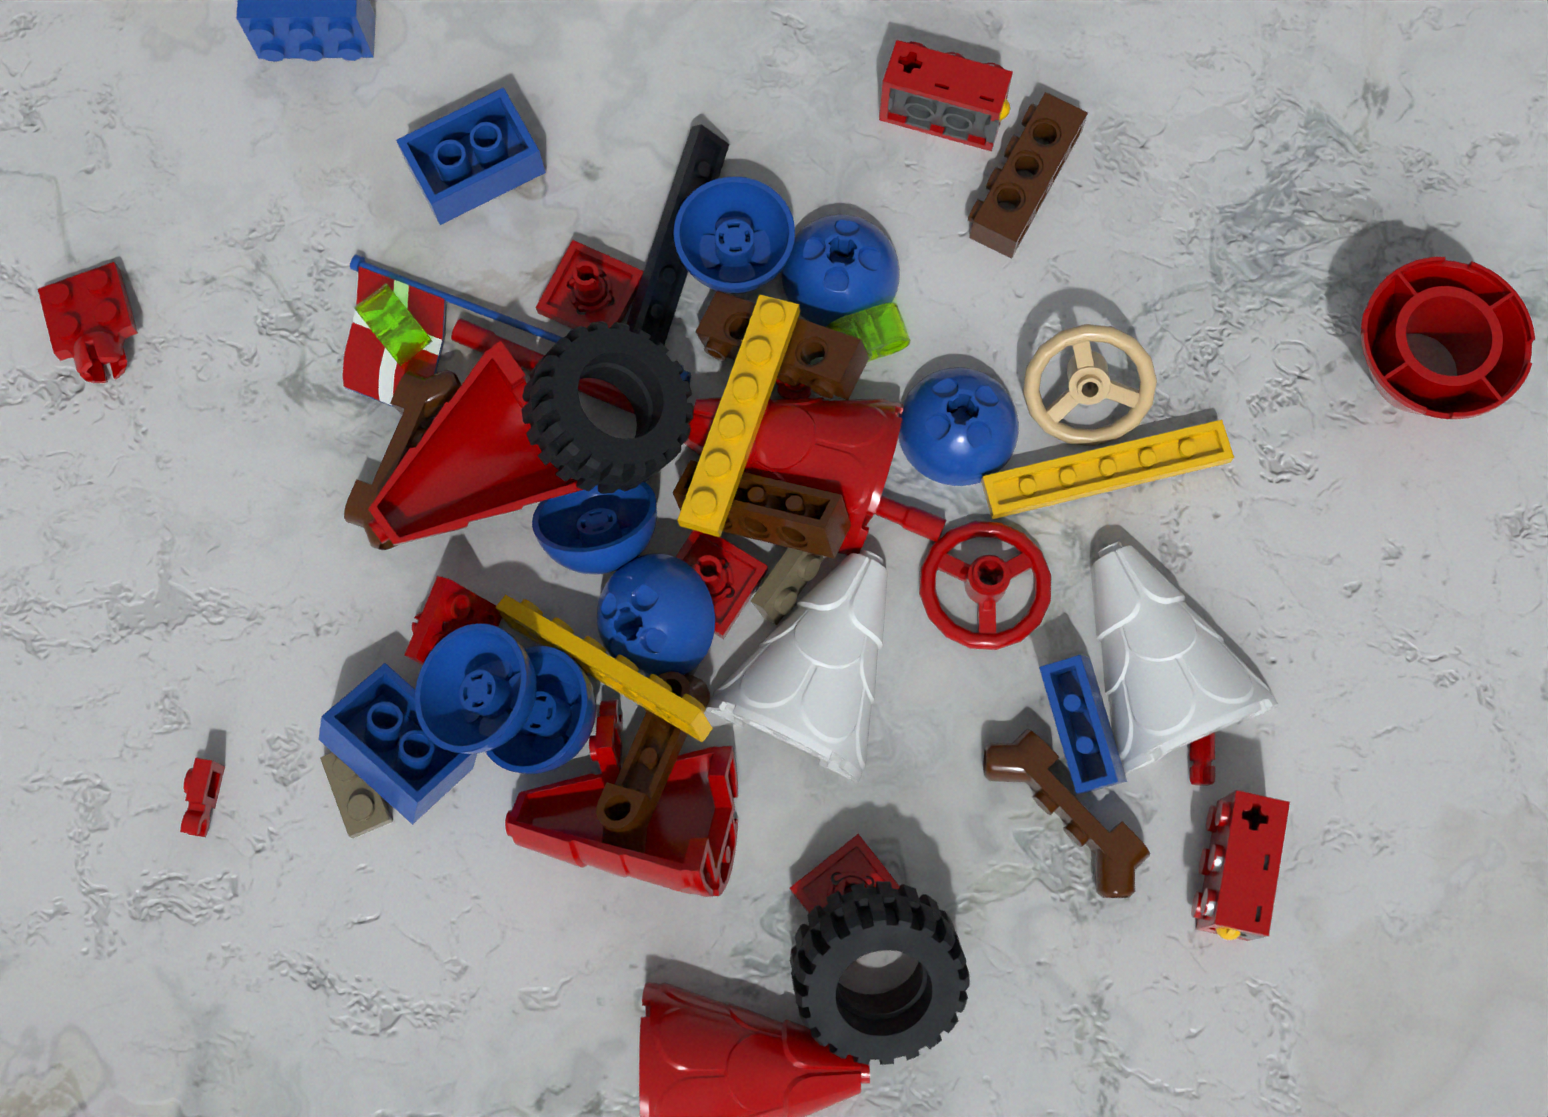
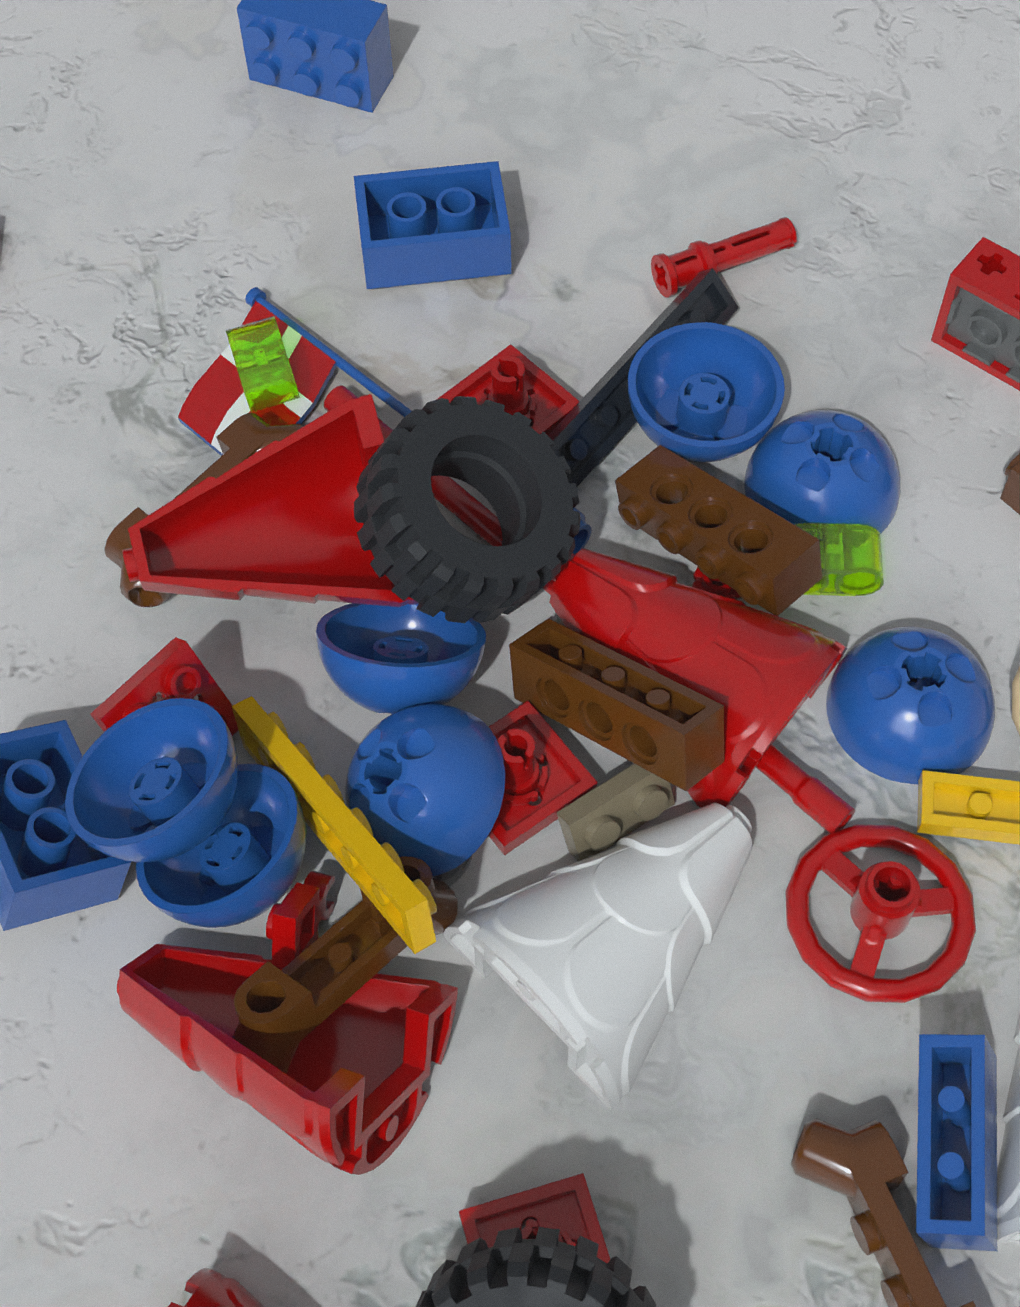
camera: 20 degrees right, 15 degrees down
(690, 111) = (682, 267): none -> red pin
(739, 416) = (625, 580): yellow plate -> none

